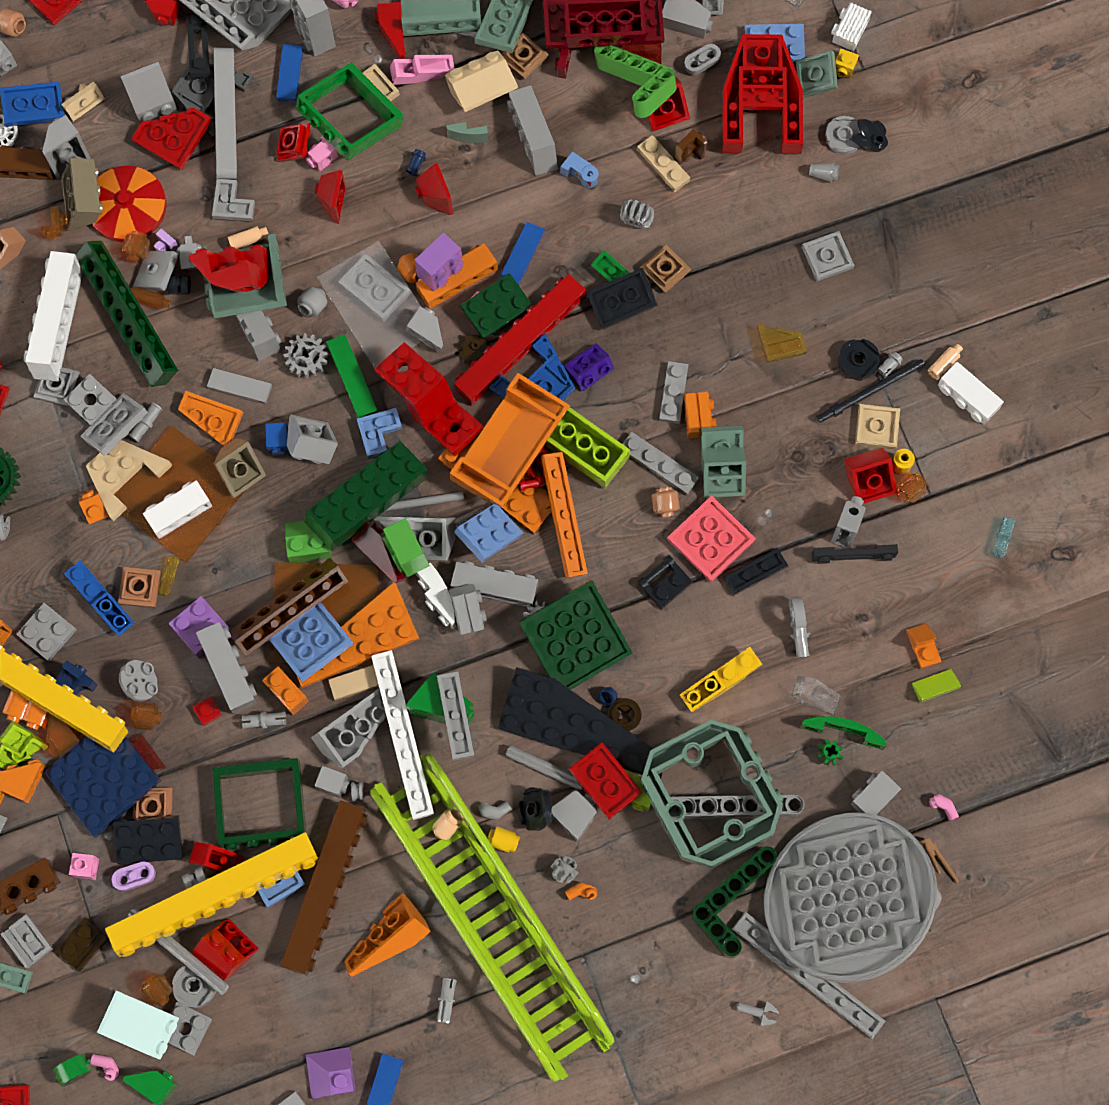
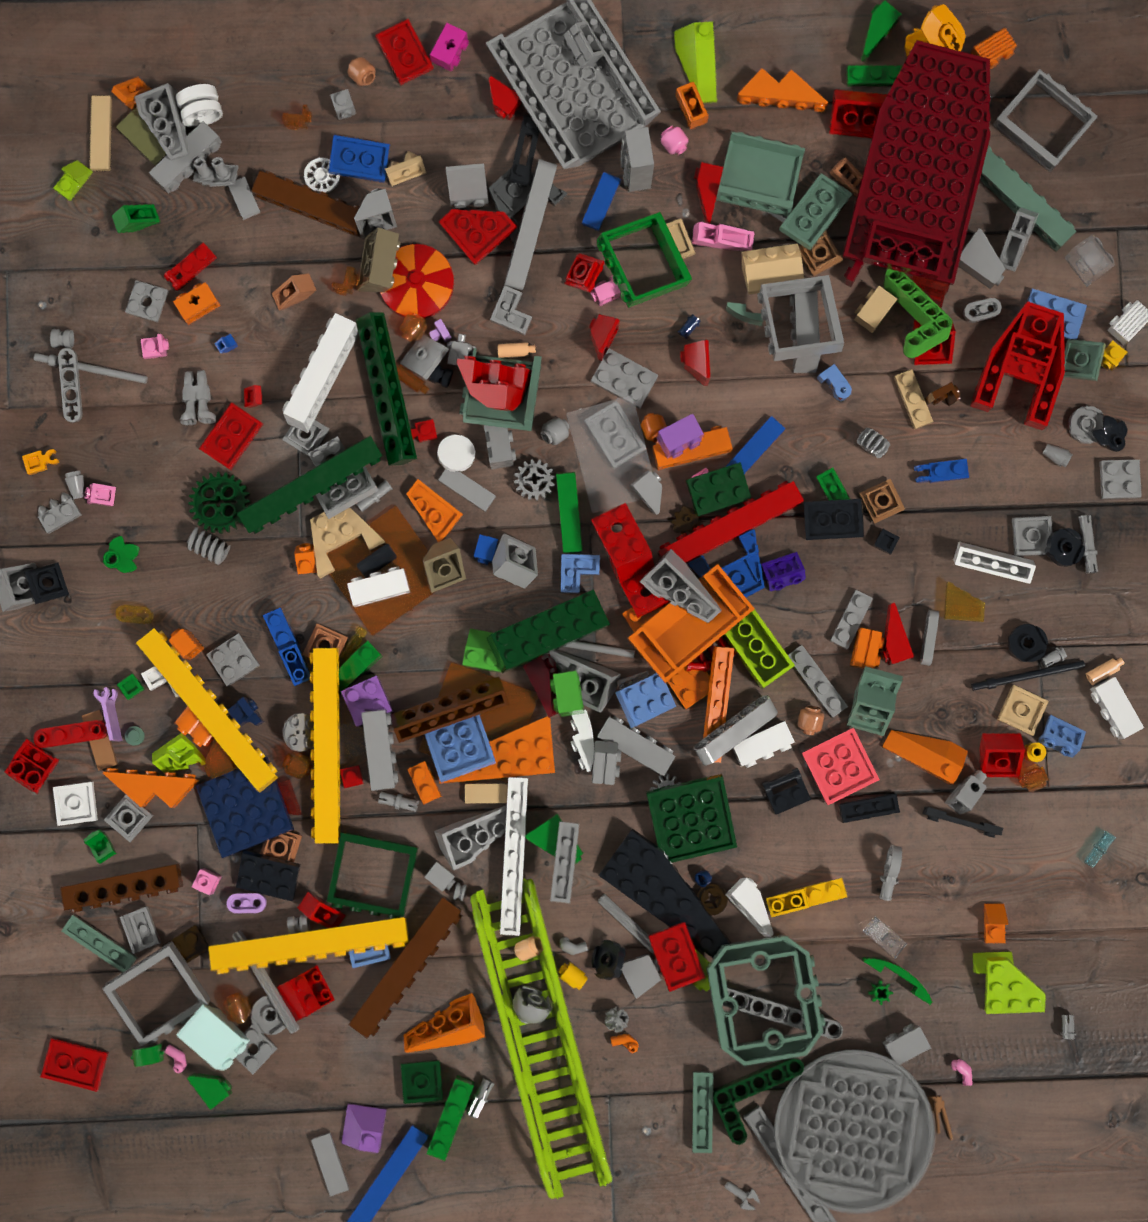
camera: 15 degrees right, 10 degrees up
(33, 982) = (171, 951): none -> light grey window
(74, 428) = (309, 484): none -> dark green brick
(167, 482) = (376, 560): none -> black slope
(170, 684) = (326, 745): none -> yellow brick
(177, 596) = (357, 665): none -> green slope
(179, 344) = (424, 431): none -> red plate
(217, 354) = (456, 453): none -> white tile
(361, 229) = (624, 377): none -> light grey plate
(378, 1003) = (421, 1081): none -> dark green plate
(420, 1030) = (450, 1118): none -> green brick
(469, 883) = (531, 1006): none -> light grey cylinder
(484, 407) = (679, 585): none -> light grey wedge
(511, 88) = (819, 283): none -> light grey window
(591, 534) = (735, 730): none -> light grey beam
(596, 89) = (875, 309): none -> tan brick
(624, 541) = (763, 744): none -> white brick
(665, 705) = (750, 903): none -> white slope
(683, 305) = (886, 541): none -> black plate
(686, 937) = (702, 1112): none -> sand green plate
(716, 222) = (943, 471): none -> blue hinge
(727, 401) = (896, 643): none -> red slope
(758, 384) = (929, 637): none -> light grey beam
(797, 290) = (994, 562): none -> white brick
(801, 499) = (932, 755): none -> orange wedge
(862, 265) = (1057, 554): none -> black plate
(889, 253) = (1088, 542): none -> light grey pin
(895, 176) = (1120, 479): none -> light grey plate
(926, 439) = (1062, 737): none -> medium blue bracket
(963, 705) = (1010, 989): none -> lime plate
(1036, 726) = (1068, 1028): none -> light grey pin

